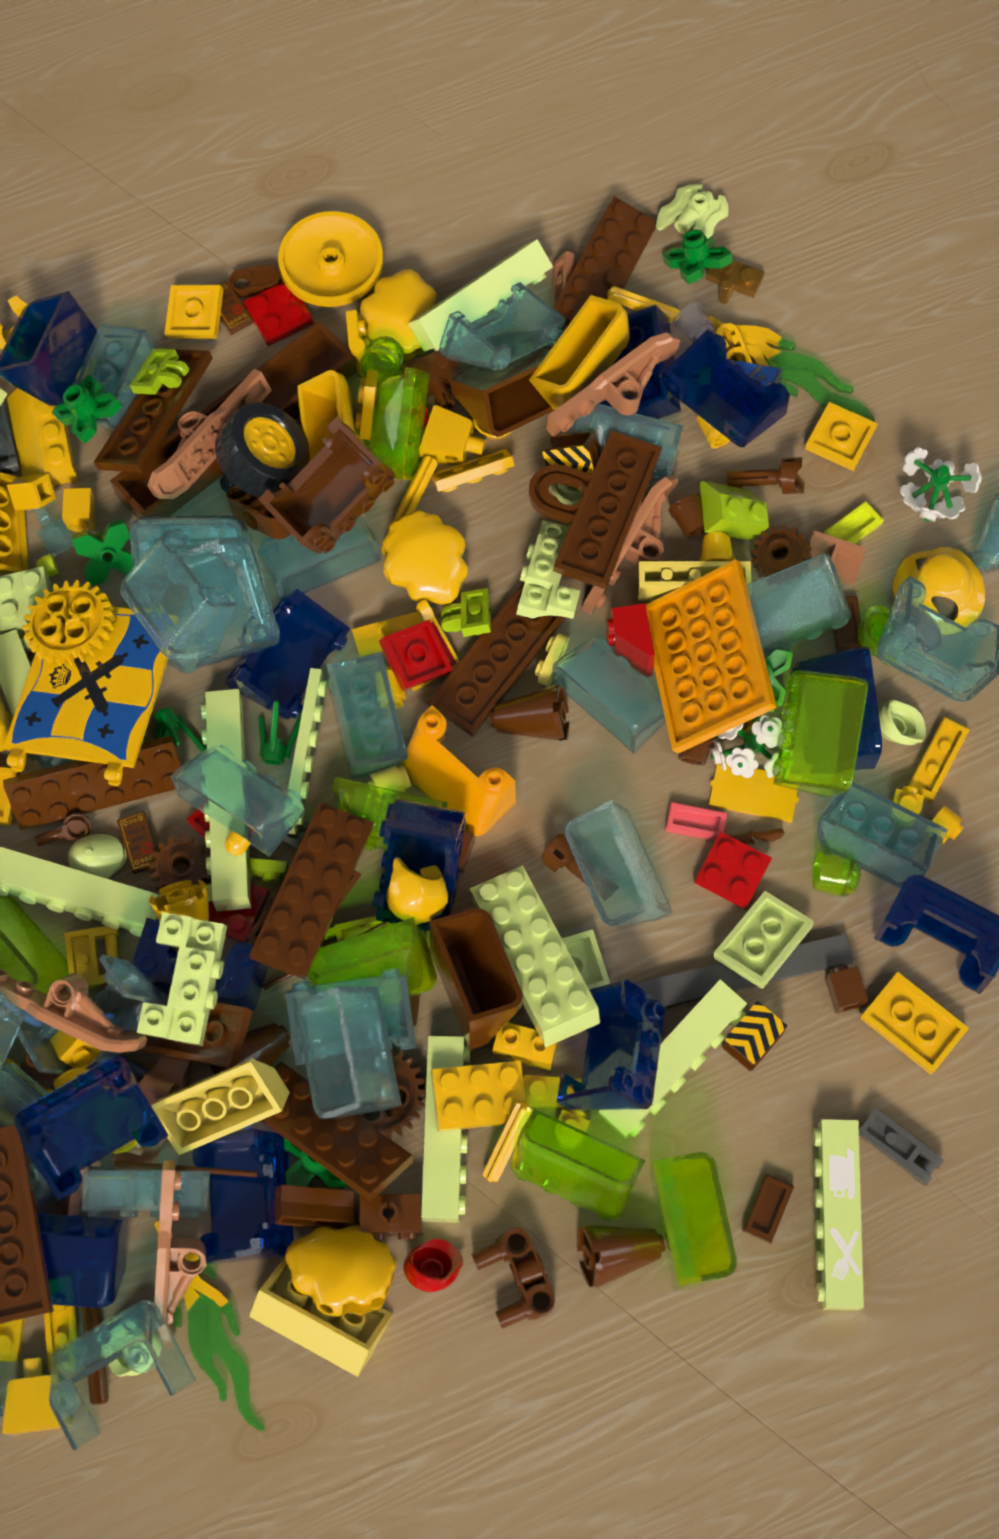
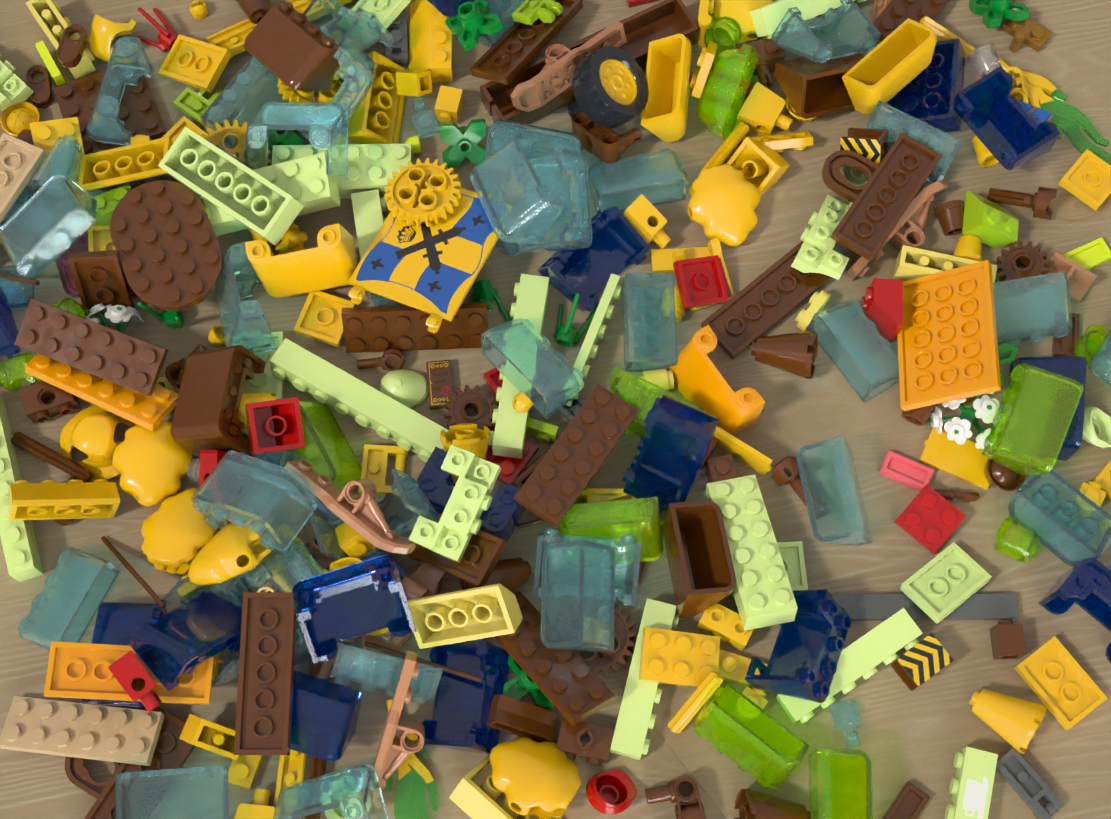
camera: 10 degrees right, 0 degrees up
(330, 490) = (662, 129): reddish brown windscreen -> none
(340, 598) = (647, 221): none -> yellow torso
(415, 896) = (662, 478): yellow piece -> none
(456, 502) = (759, 164): none -> yellow slope
(470, 615) = (752, 258): lime hinge -> none
(482, 867) = (720, 468): none -> reddish brown brick
(503, 842) = (743, 452): none -> yellow piece
(622, 379) = (917, 96): nougat piece -> none
(683, 1121) = (846, 719): none -> clear light blue plate
(804, 804) = (1002, 477): none -> reddish brown hat
(863, 1075) = (1009, 716): none -> yellow cone

